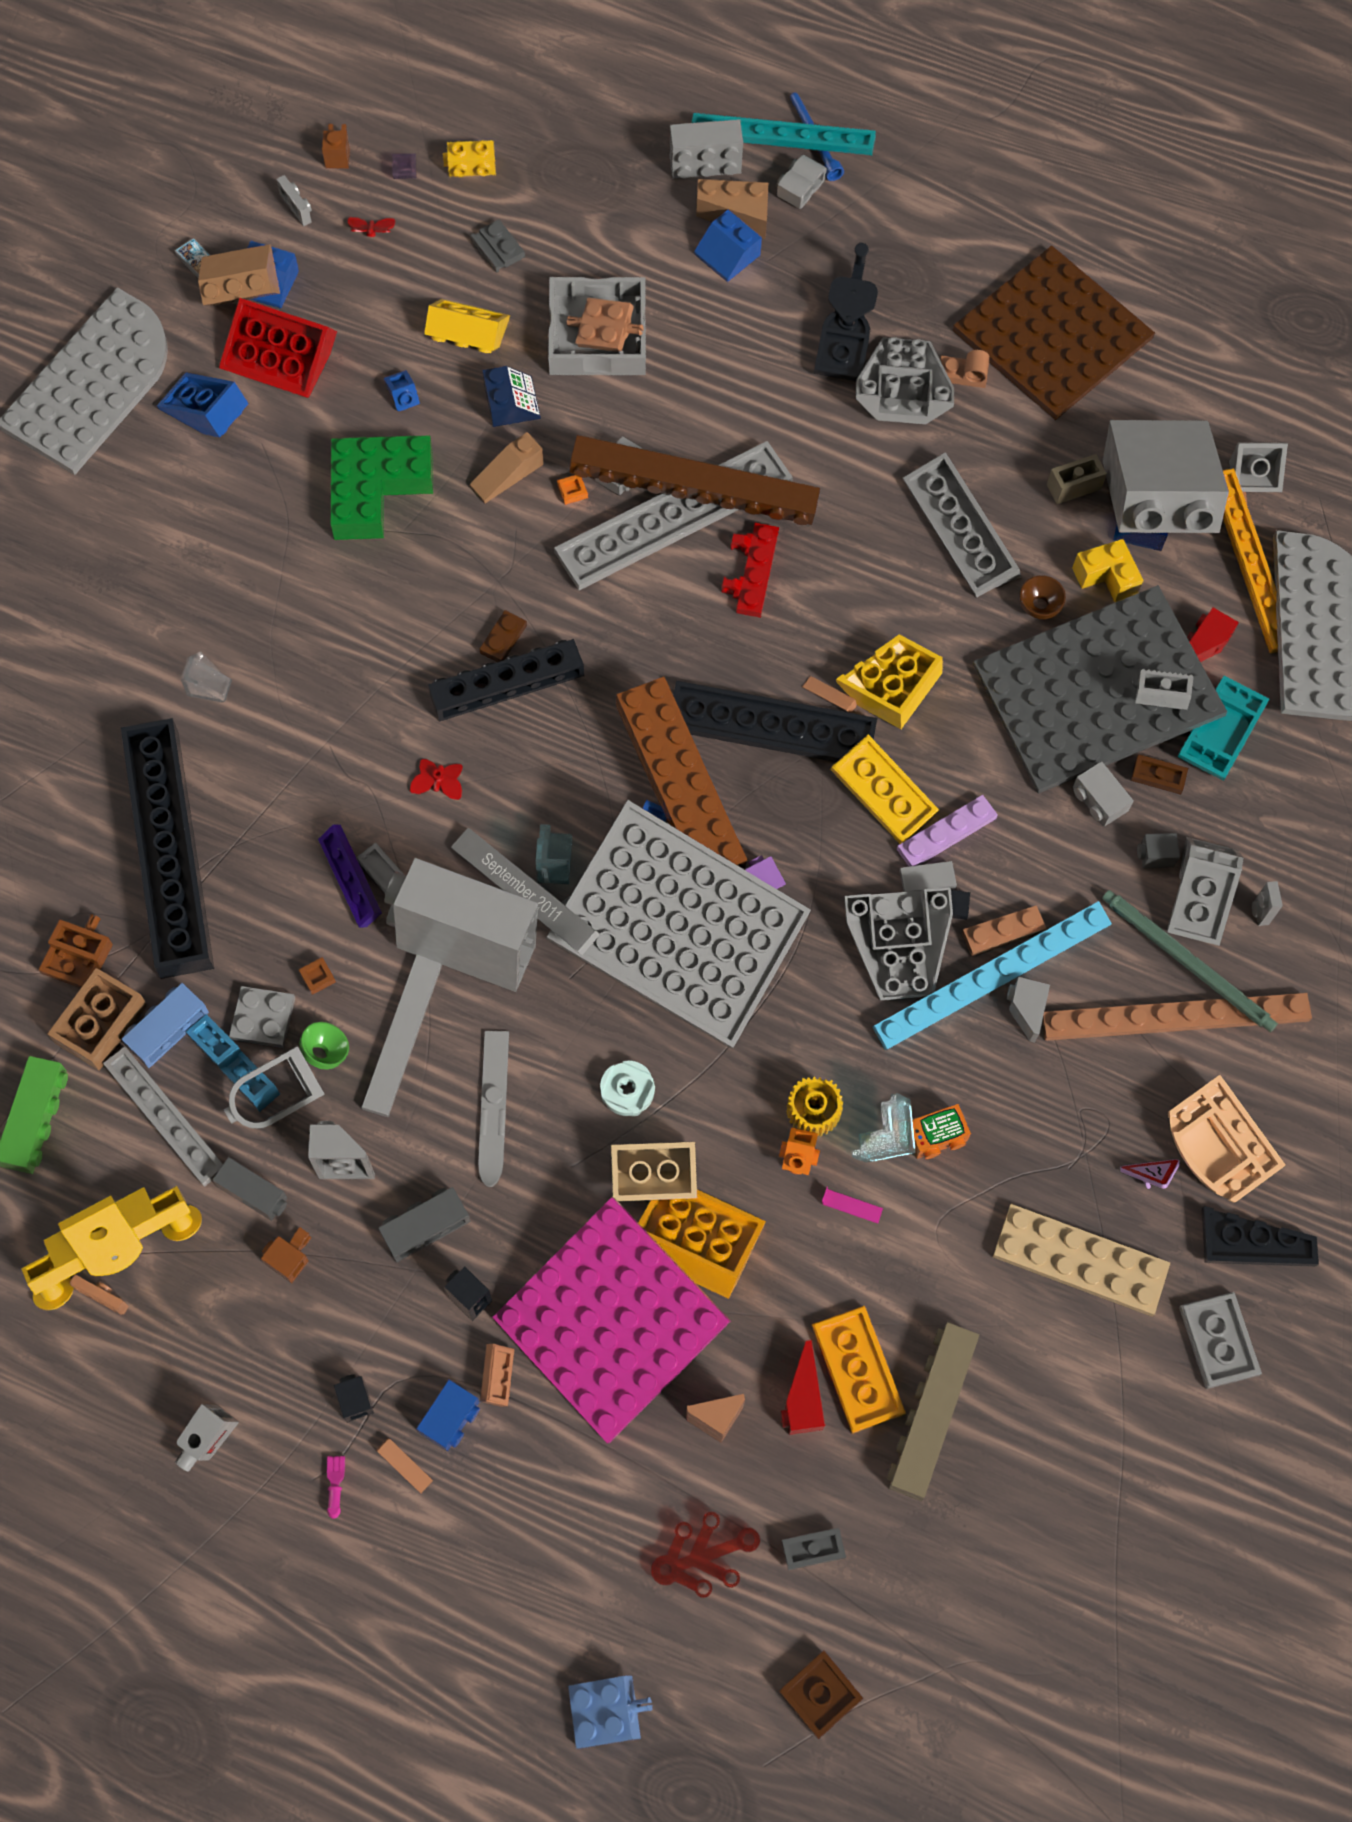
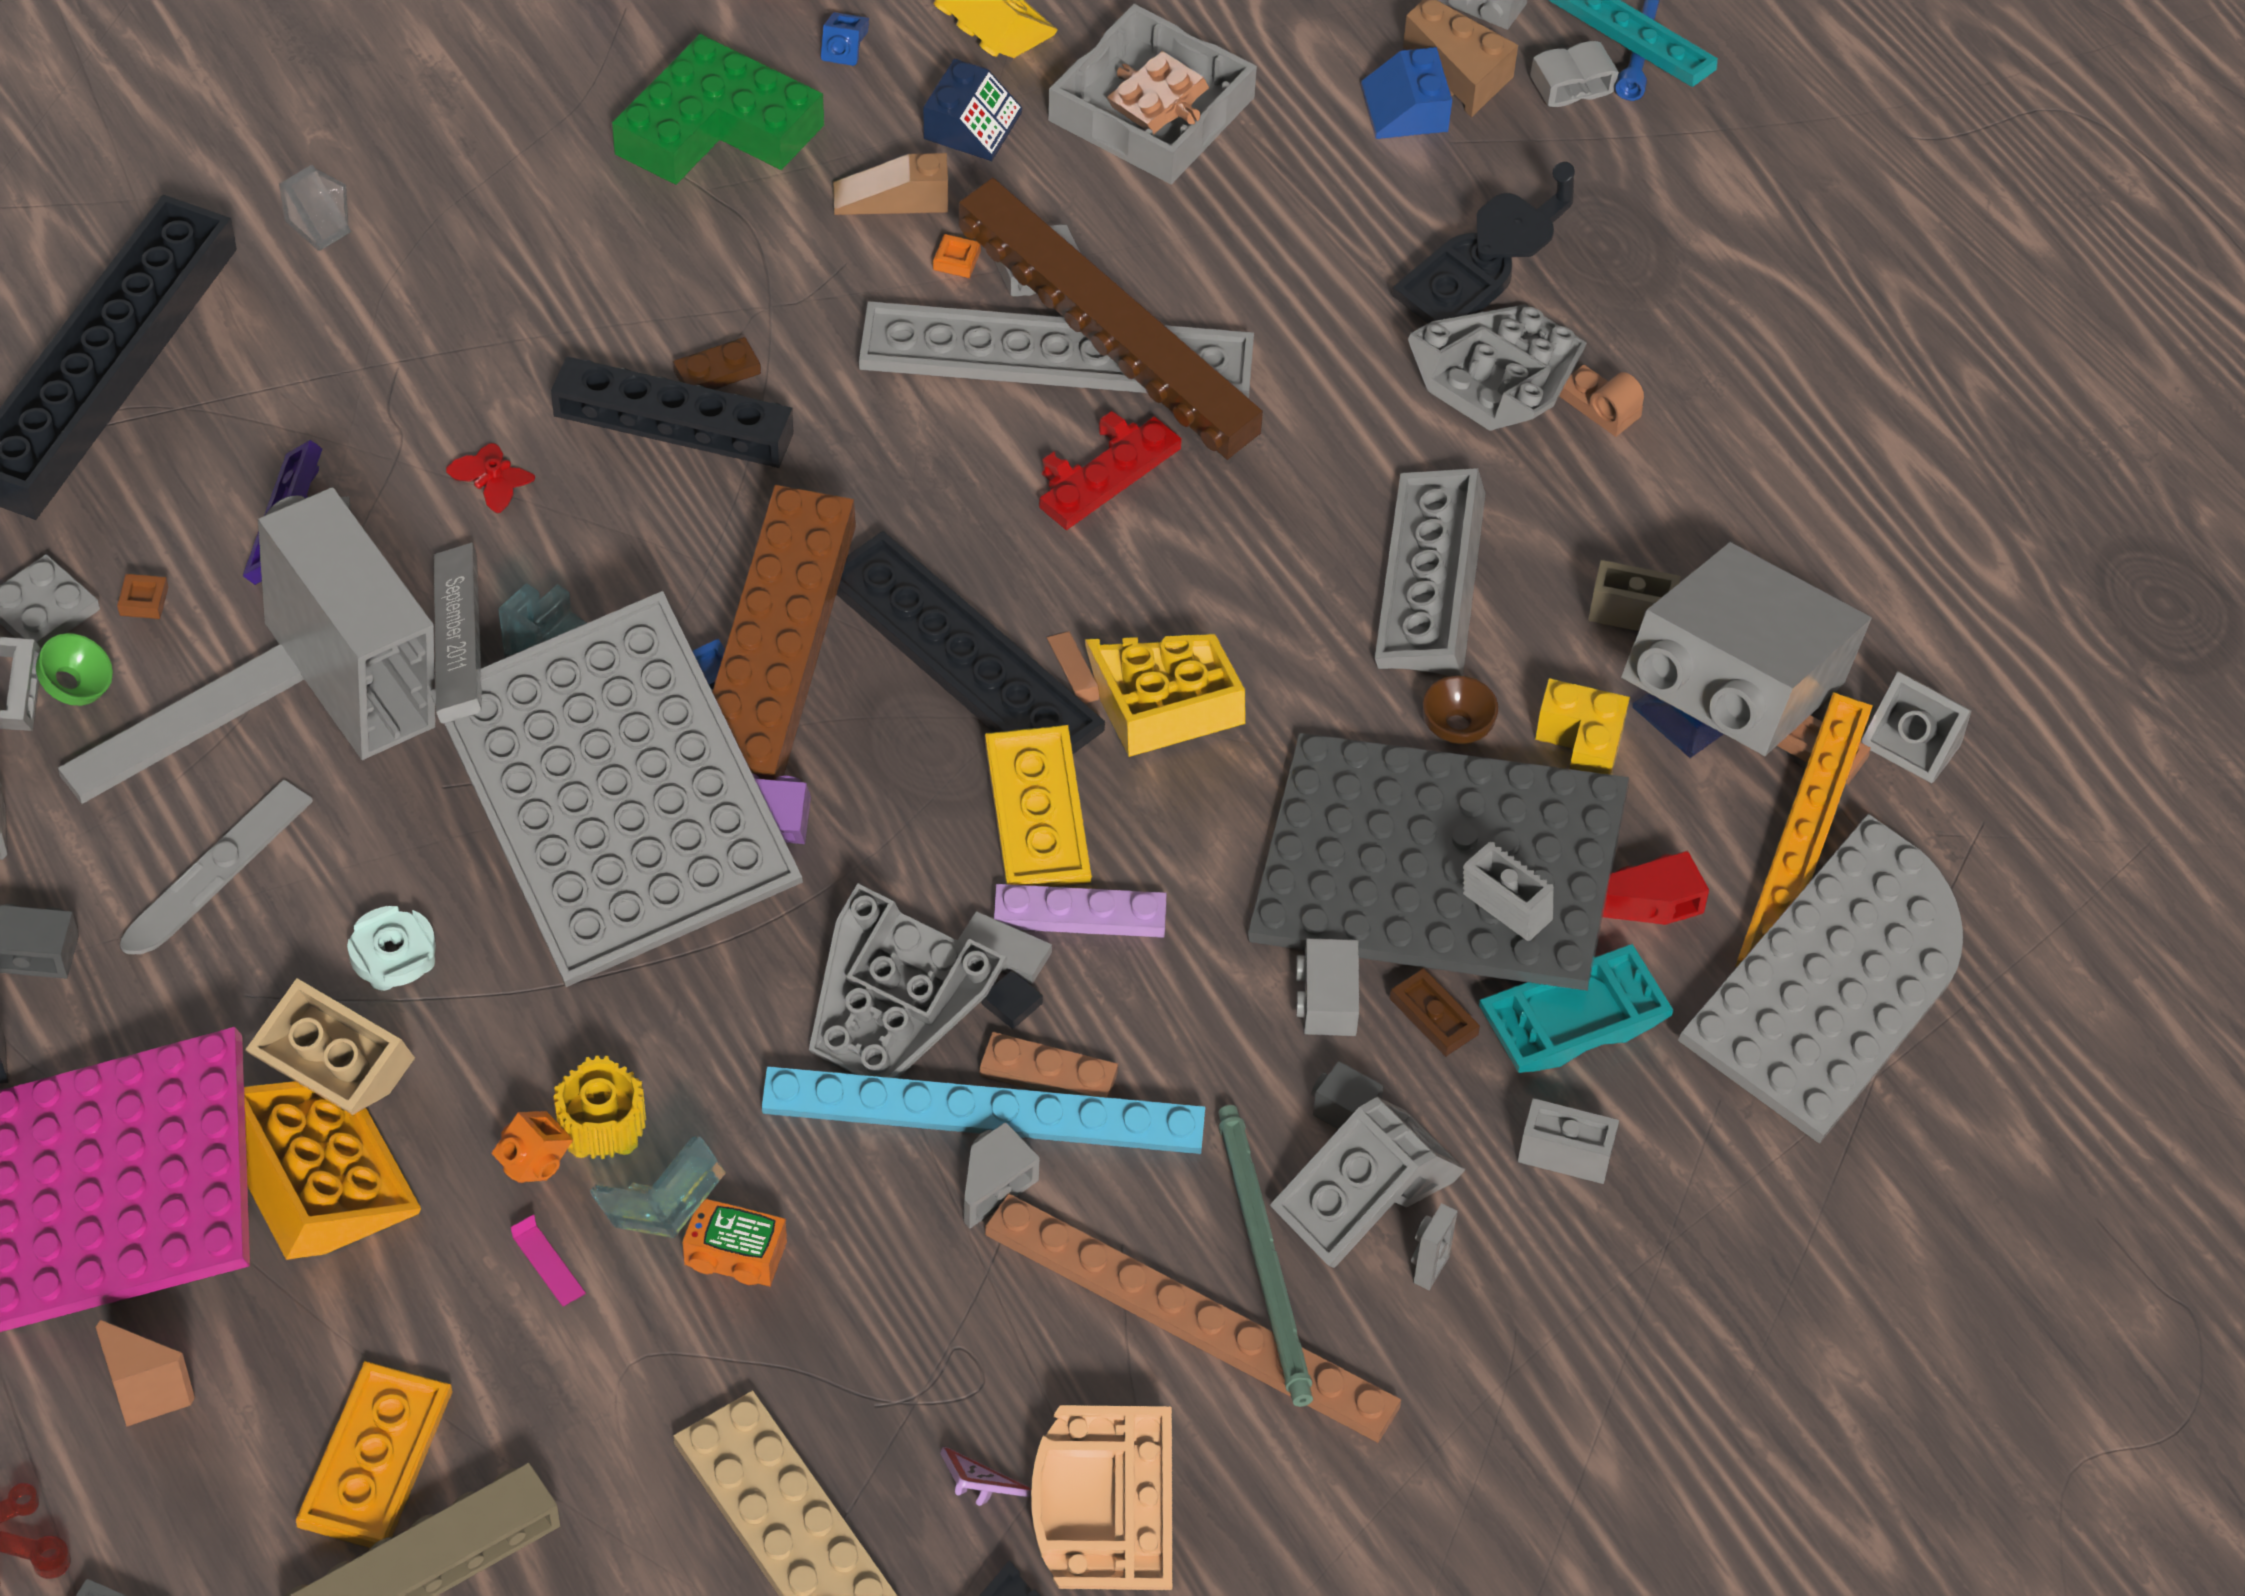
camera: 35 degrees right, 15 degrees down
(803, 1405) = (272, 1433): red slope -> none
(1053, 332) = (1771, 422): reddish brown plate -> none
(1276, 802) = (1568, 1141): none -> light grey panel

